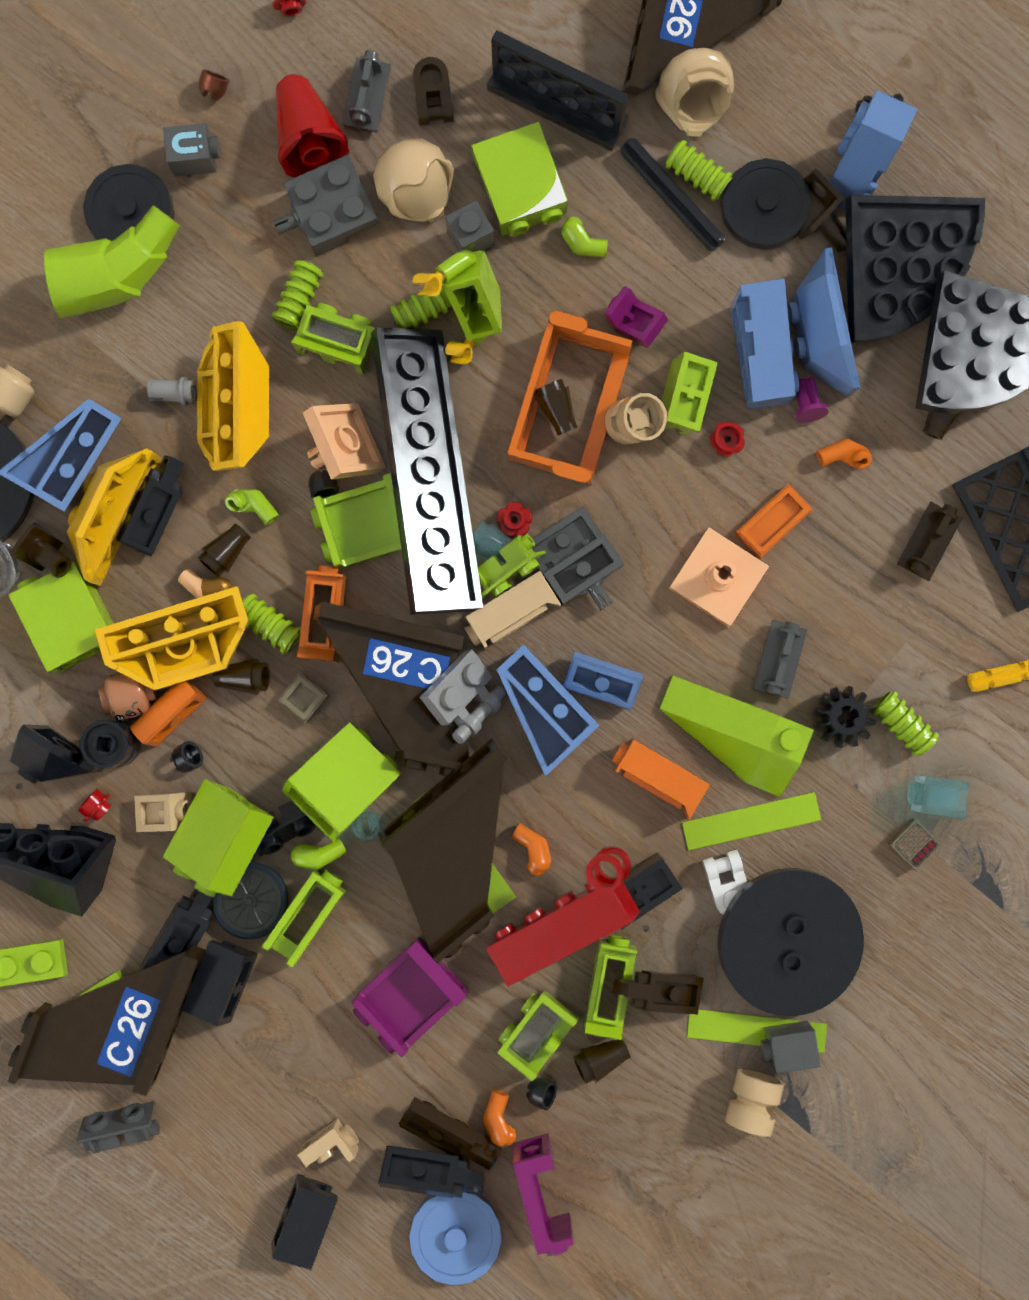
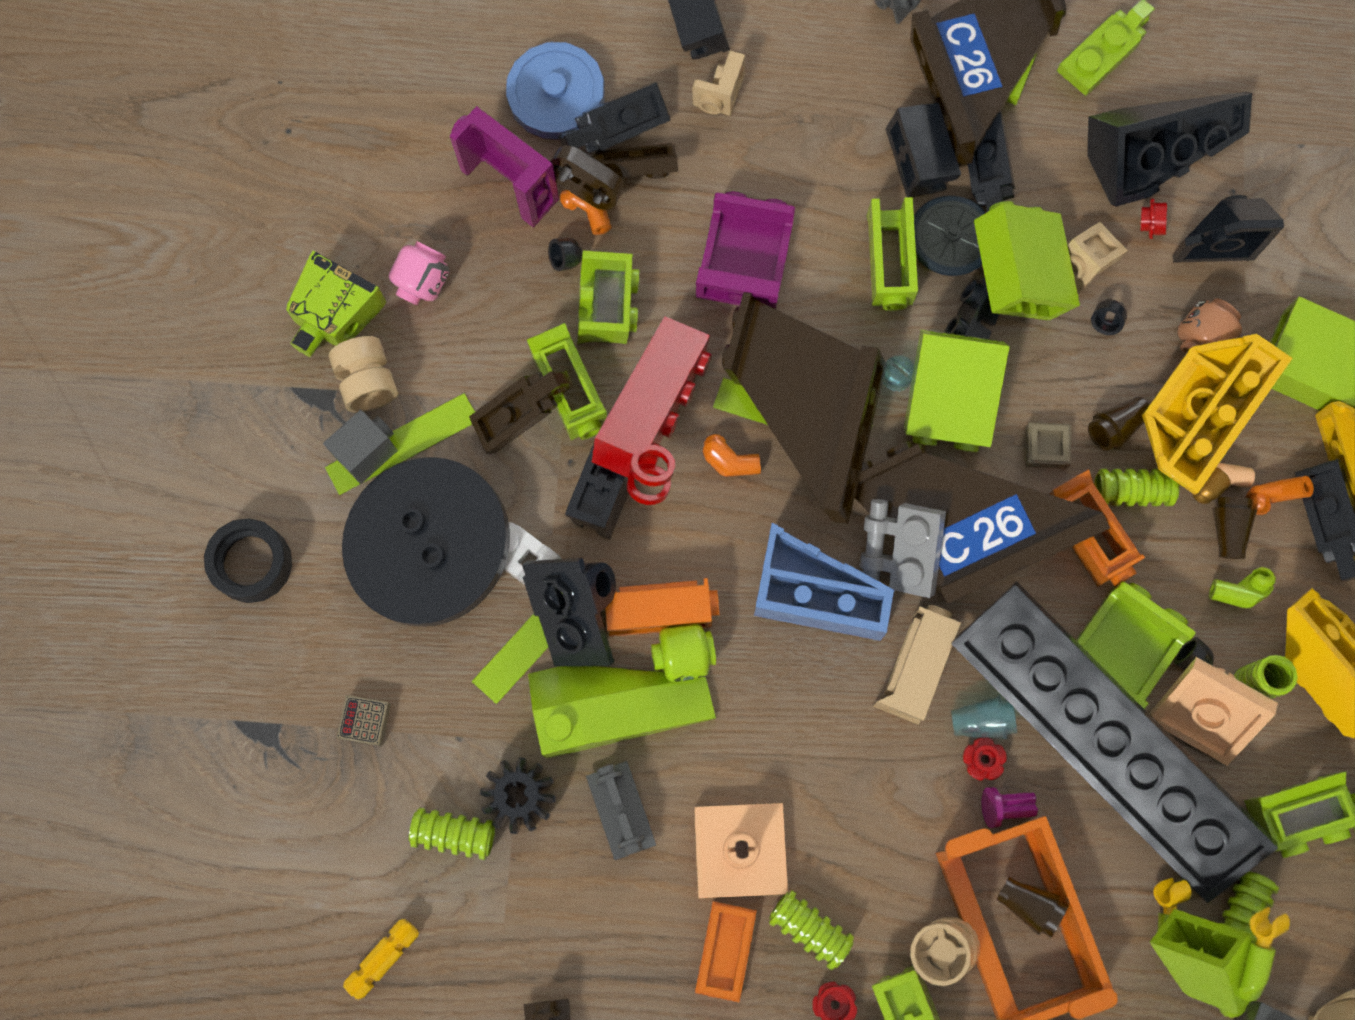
camera: 145 degrees right, 10 degrees down
(109, 744) = (1187, 276): black wheel -> none
(167, 713) = (1159, 341): orange brick -> none
(169, 549) = (1279, 491): none -> orange arm
(284, 427) = (1269, 676): none -> lime piece
(316, 857) = (923, 311): lime arm -> none
(488, 1139) = (587, 177): none -> dark brown beam
(519, 560) = (950, 717): lime hinge -> none
(523, 479) = (1006, 806): none -> magenta piece
(577, 558) = (897, 762): dark grey plate -> none
(600, 1059) = (531, 316): dark brown cone -> none
(603, 680) = (781, 661): medium blue brick -> none
(660, 1154) = (419, 273): none -> bright pink head
(666, 732) = (684, 652): none -> lime head
(710, 494) = (811, 930): none -> lime piece
(725, 818) = (572, 619): none -> black piece
(743, 1176) = (330, 304): none -> lime torso
(938, 796) = (370, 782): clear light blue brick -> none
(945, 1039) = (221, 543): none -> black tyre

